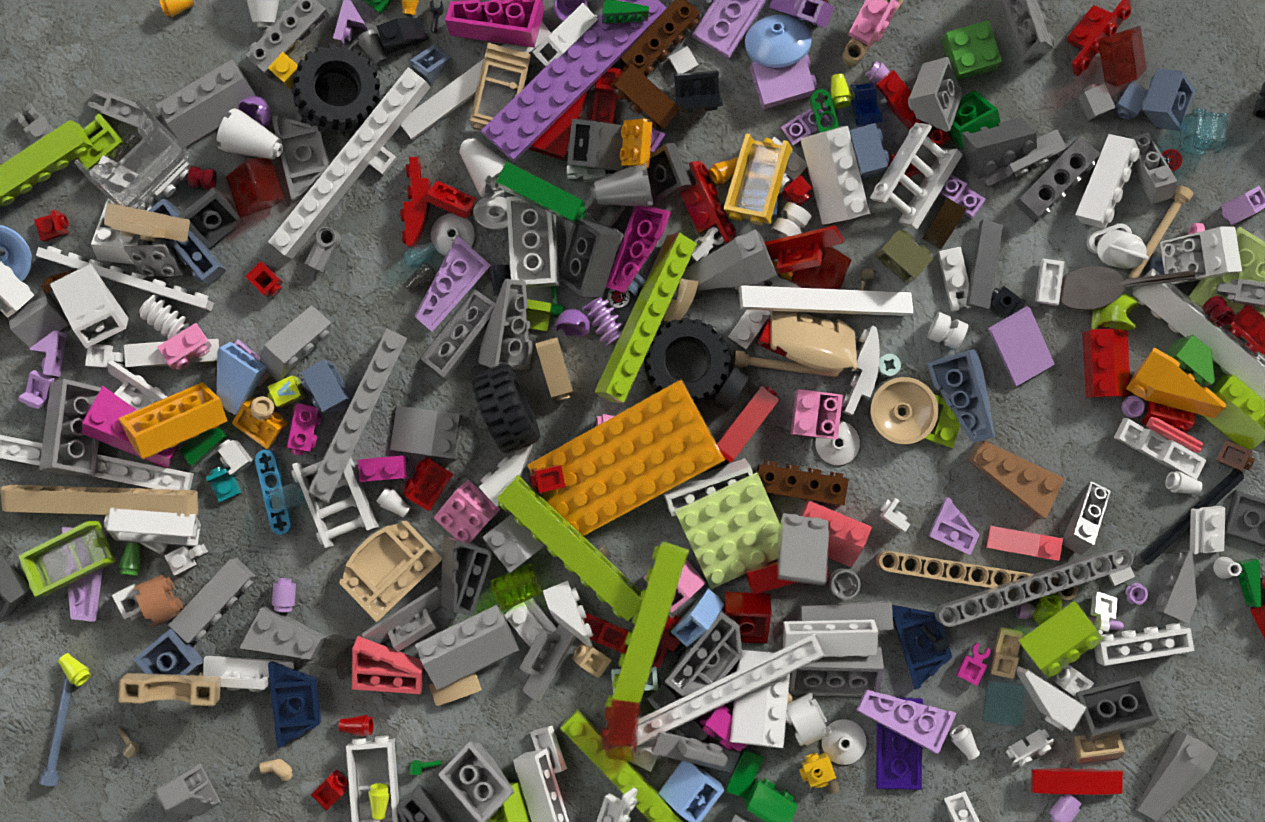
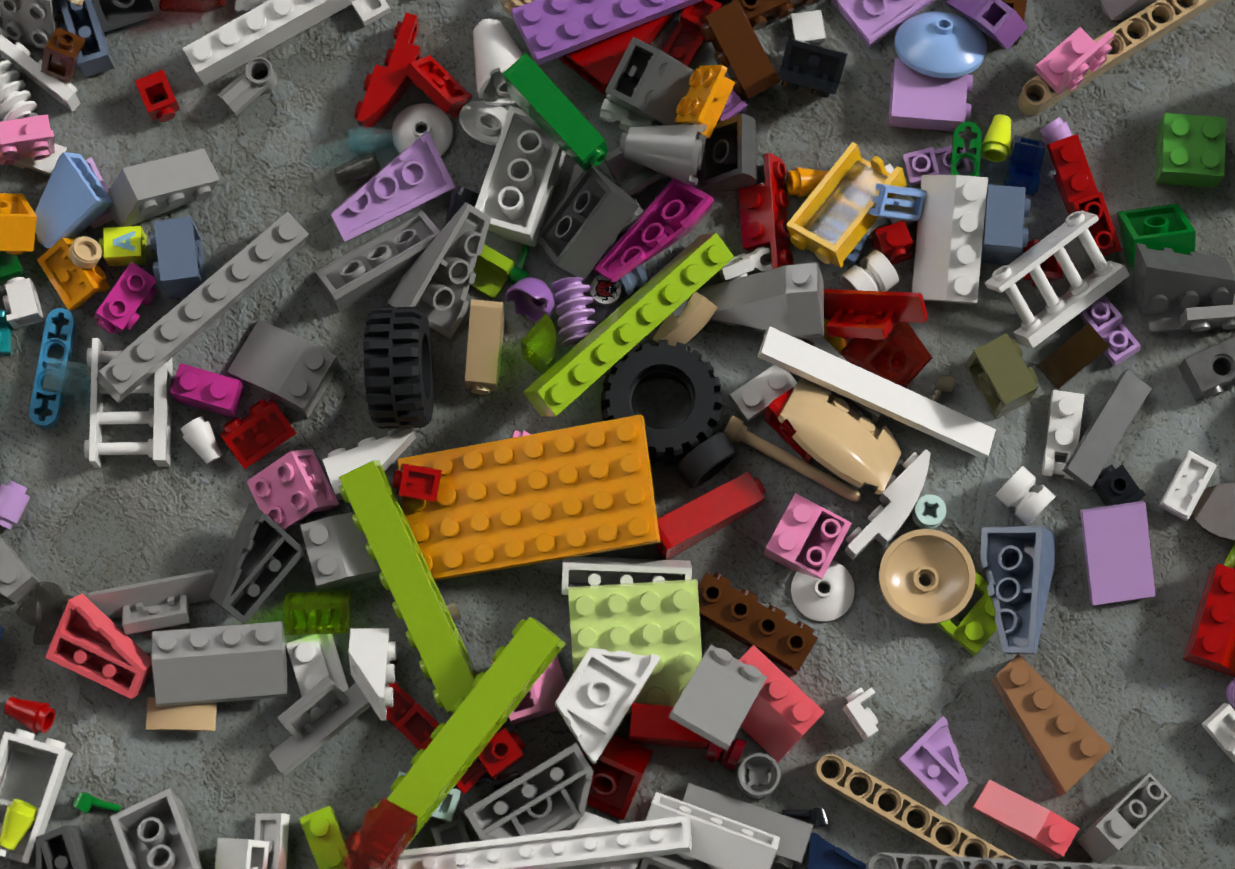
camera: 20 degrees right, 10 degrees down
(188, 278) = (62, 55): none -> reddish brown bracket
(388, 568) = (160, 521): tan slope -> none
(591, 659) = (378, 747): tan bracket -> none
(592, 353) = (540, 345): none -> clear neon green brick
(698, 618) = (537, 743): light blue slope -> none
(725, 573) = (602, 695): none -> white wing
(784, 176) = (882, 199): none -> light blue tile
(890, 592) = (817, 816): none -> black hand
(936, 94) = (1122, 185): light grey slope -> none

